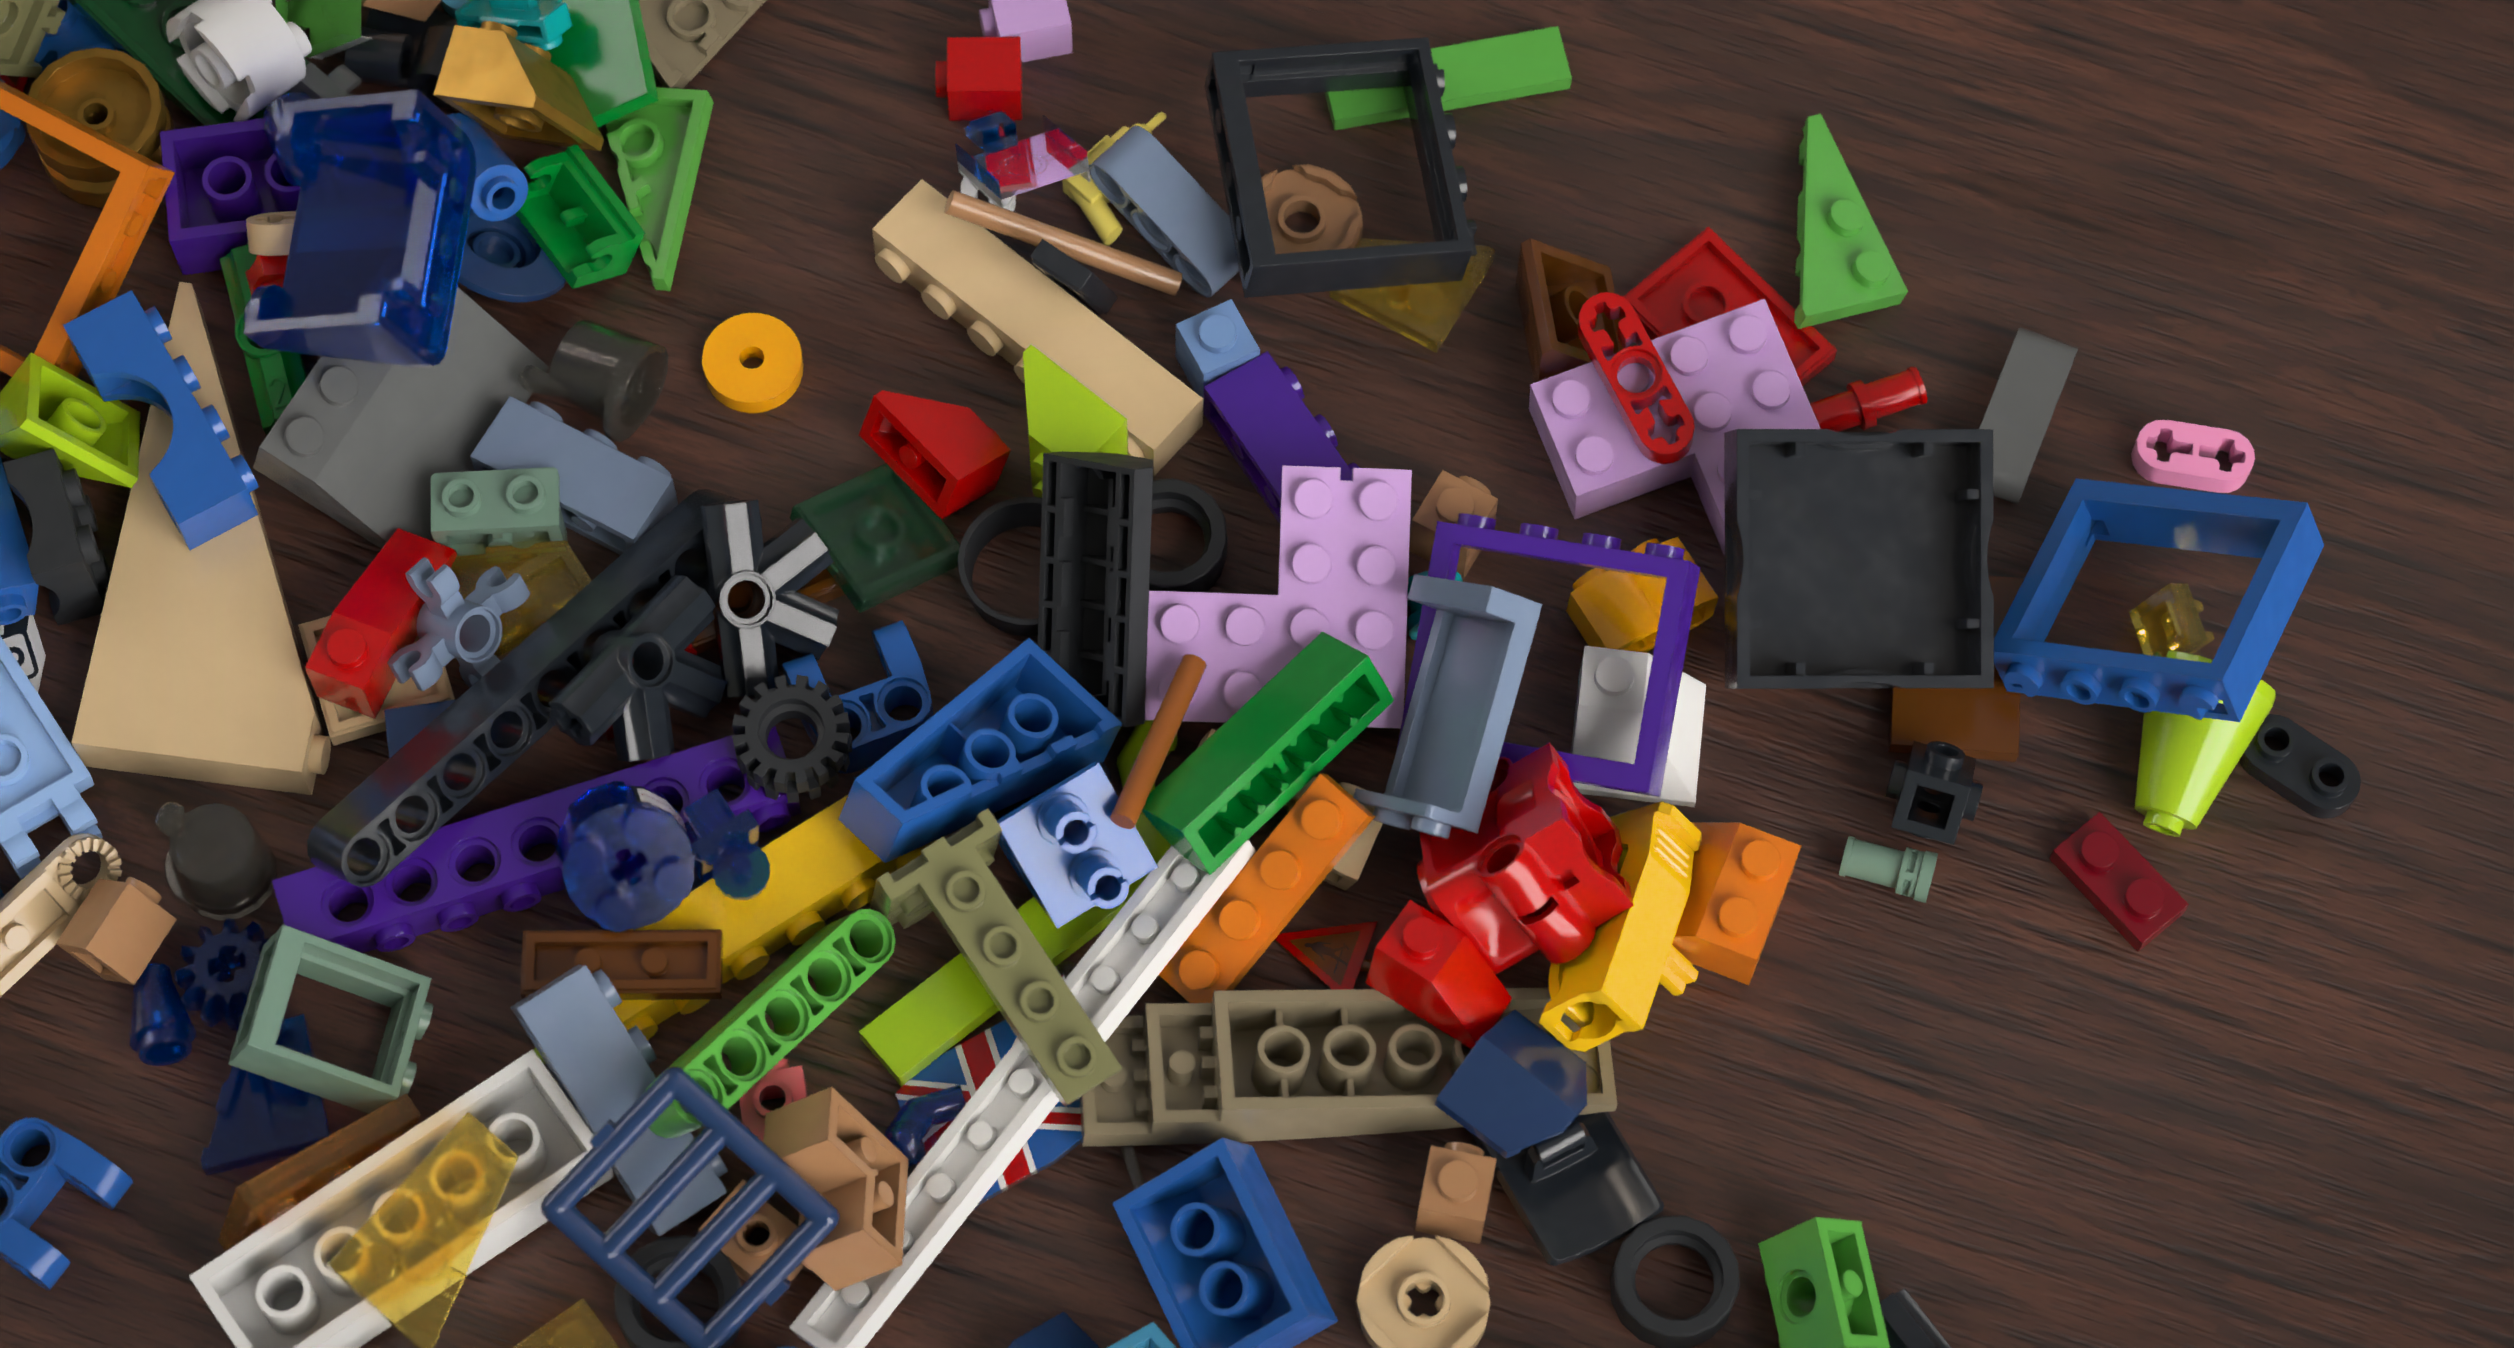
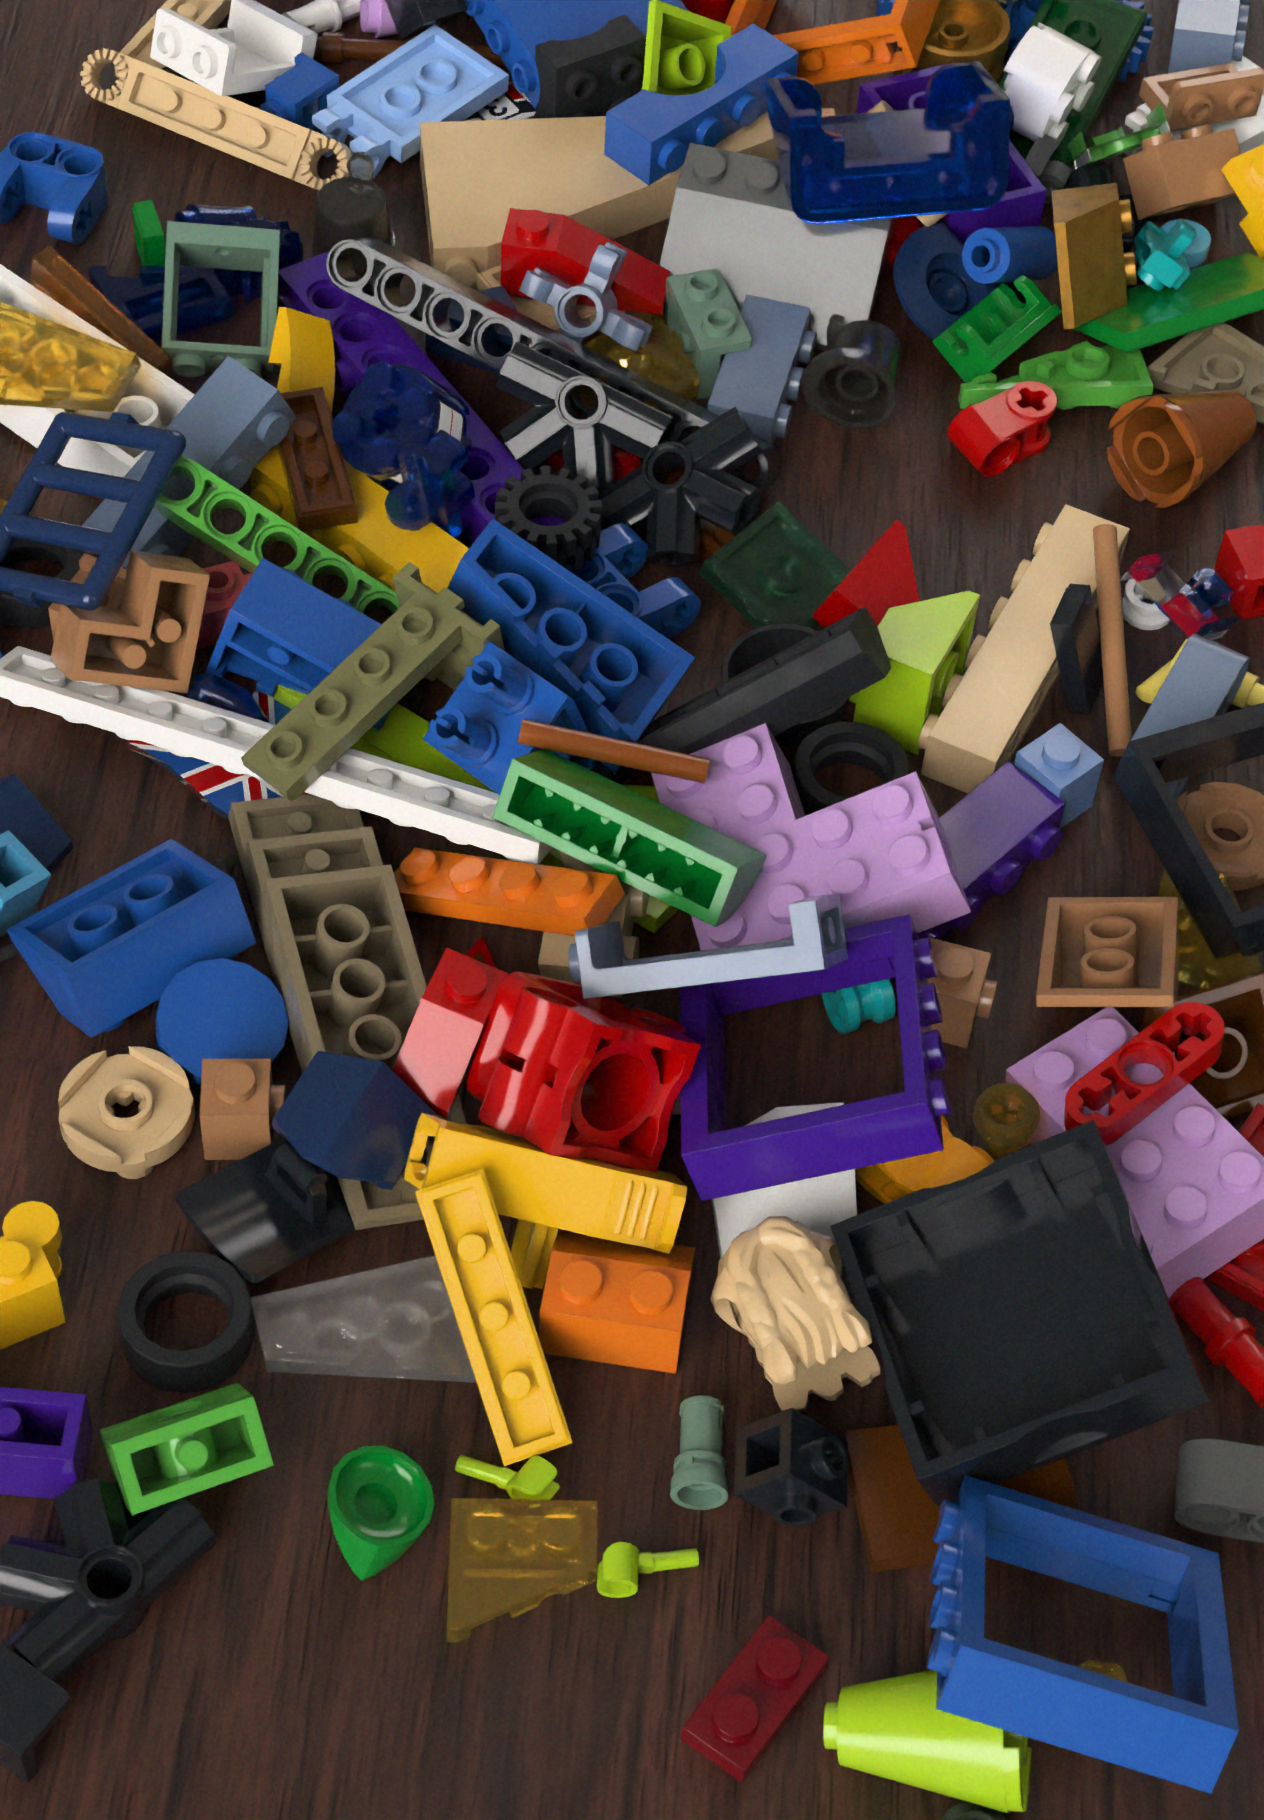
camera: 75 degrees right, 15 degrees down
(117, 929) = (275, 183): medium nougat brick -> none
(165, 1091) = (148, 234): none -> green tile
(450, 944) = (305, 353): none -> yellow slope
(722, 259) = (1005, 427): none -> red piece
(756, 388) = (917, 476): light orange piece -> none
(800, 91) = (1176, 442): none -> dark orange cone
(895, 1018) = (288, 633): none -> blue wedge
(1345, 1194) = (220, 1013): none -> blue tile
(1486, 369) = (1109, 952): none -> medium nougat slope
(1629, 501) = (1005, 1118): none -> clear yellow cone
(1708, 1112) = (365, 1325): none -> clear wing
(1751, 1001) = (493, 1317): none -> yellow tile
(1789, 747) = (789, 1300): none -> tan piece
(1893, 1018) = (531, 1482): none -> lime hand
(1898, 1143) = (377, 1507): none -> green piece
(1957, 1046) = (515, 1556): none -> clear yellow wing
(1985, 961) = (622, 1563): none -> lime hand

